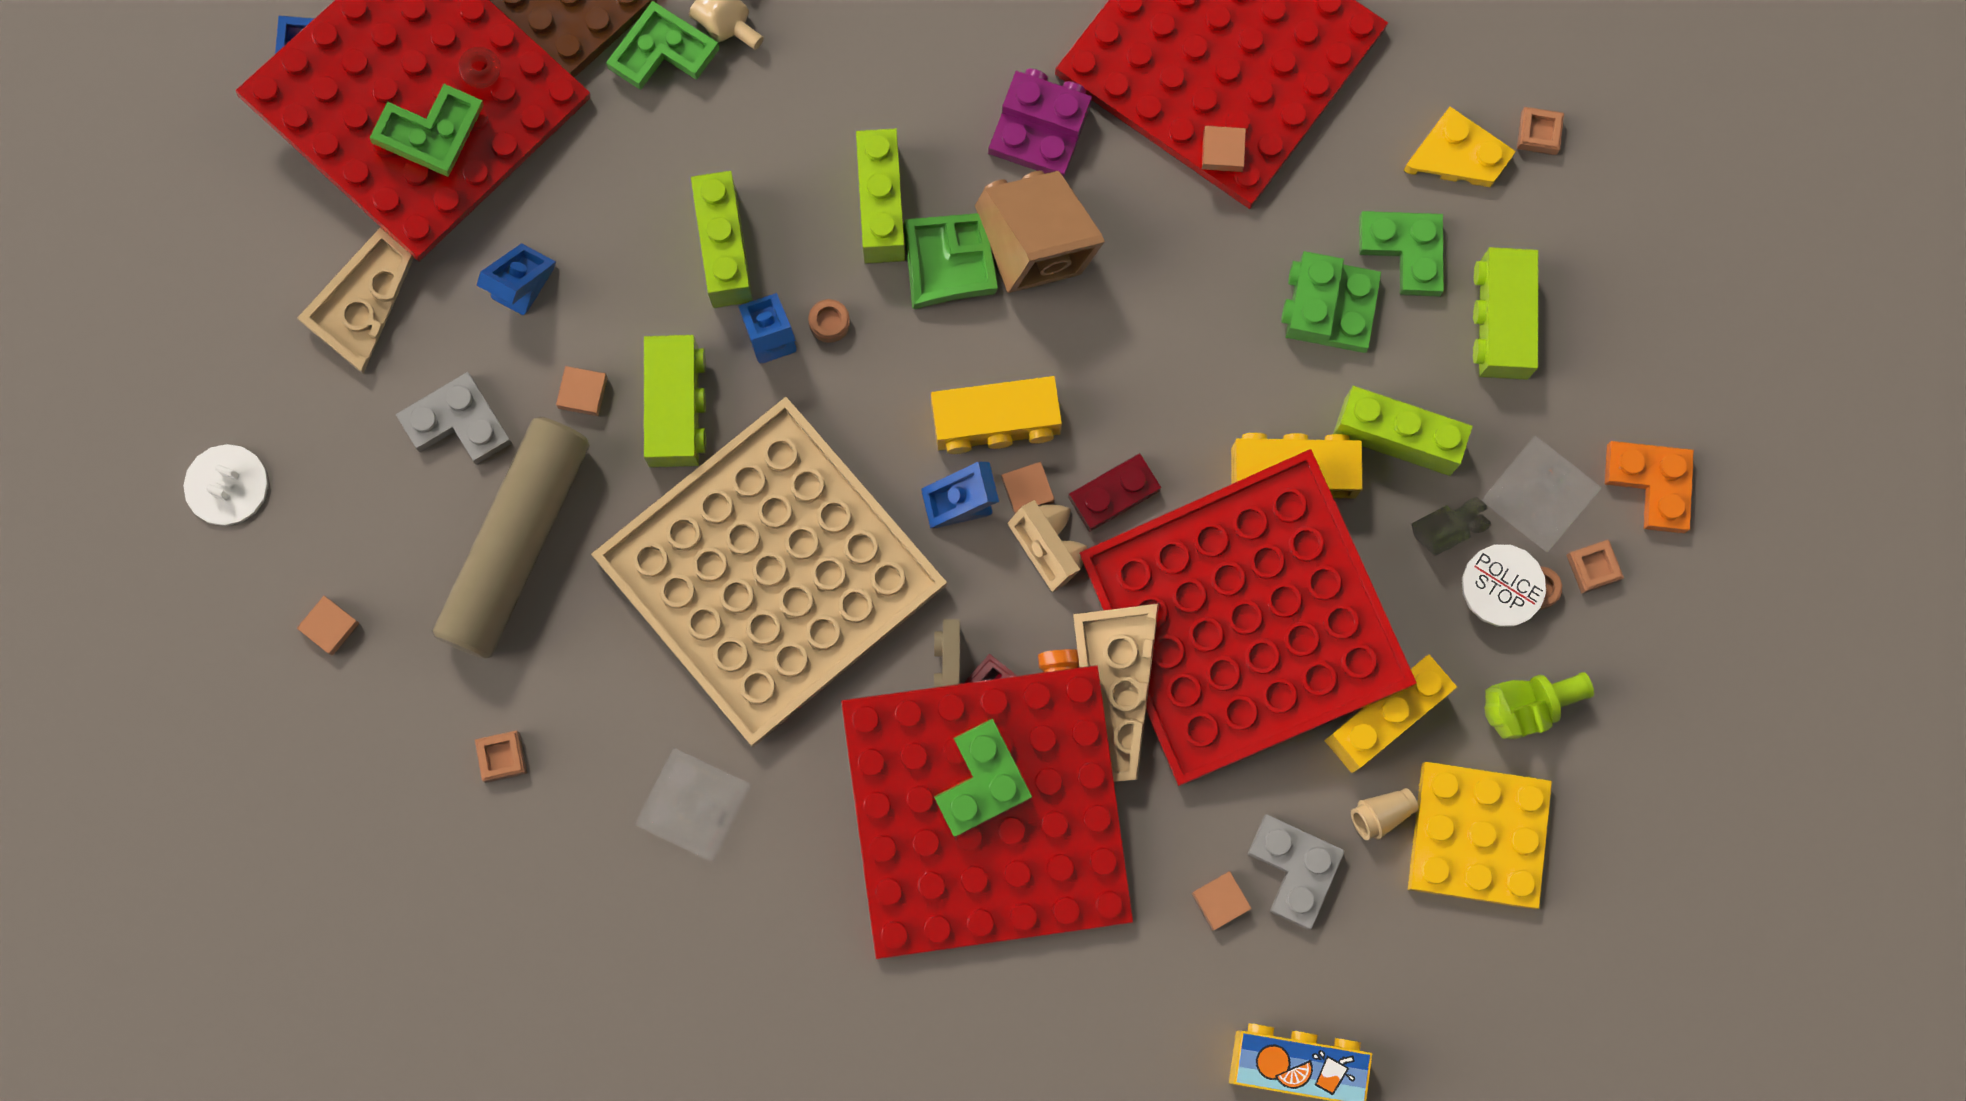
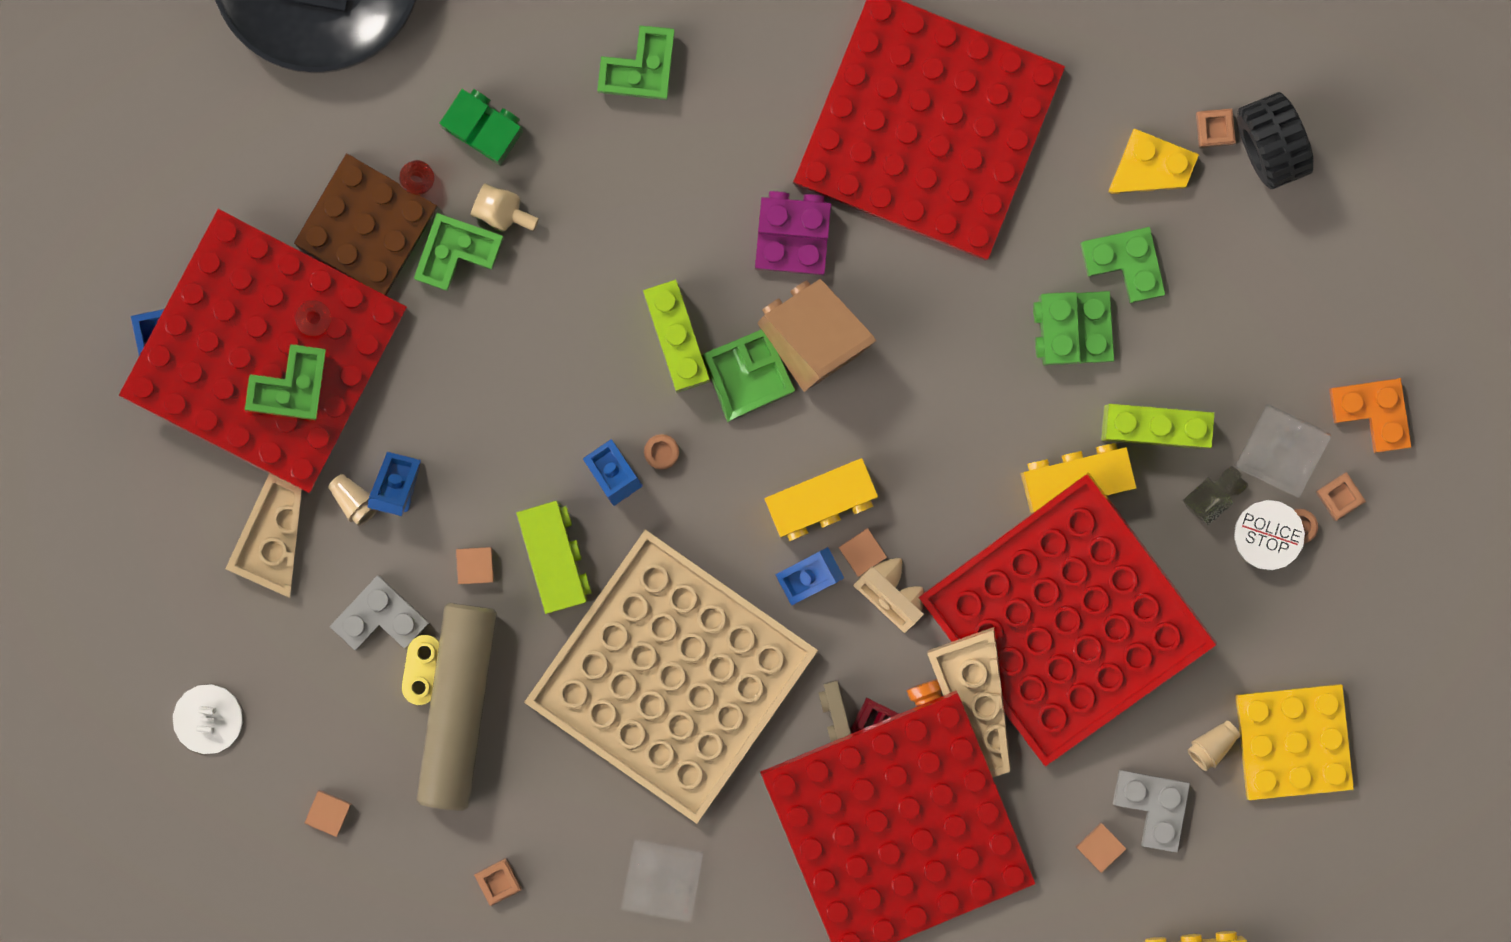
camera: 10 degrees left, 10 degrees up
(462, 280) = (351, 499): none -> tan cone
(481, 489) = (420, 669): none -> light yellow plate
(721, 239) = (554, 408): lime brick -> none
(994, 783) = (899, 809): bright green plate -> none
(1114, 492) = (934, 536): dark red plate -> none
(1223, 148) = (953, 221): nougat tile -> none
(1388, 718) = (1190, 685): yellow brick -> none
(1507, 313) = (1221, 301): lime brick -> none
(1534, 705) = (1313, 628): lime piece -> none
(1608, 148) = (1275, 140): none -> black tyre

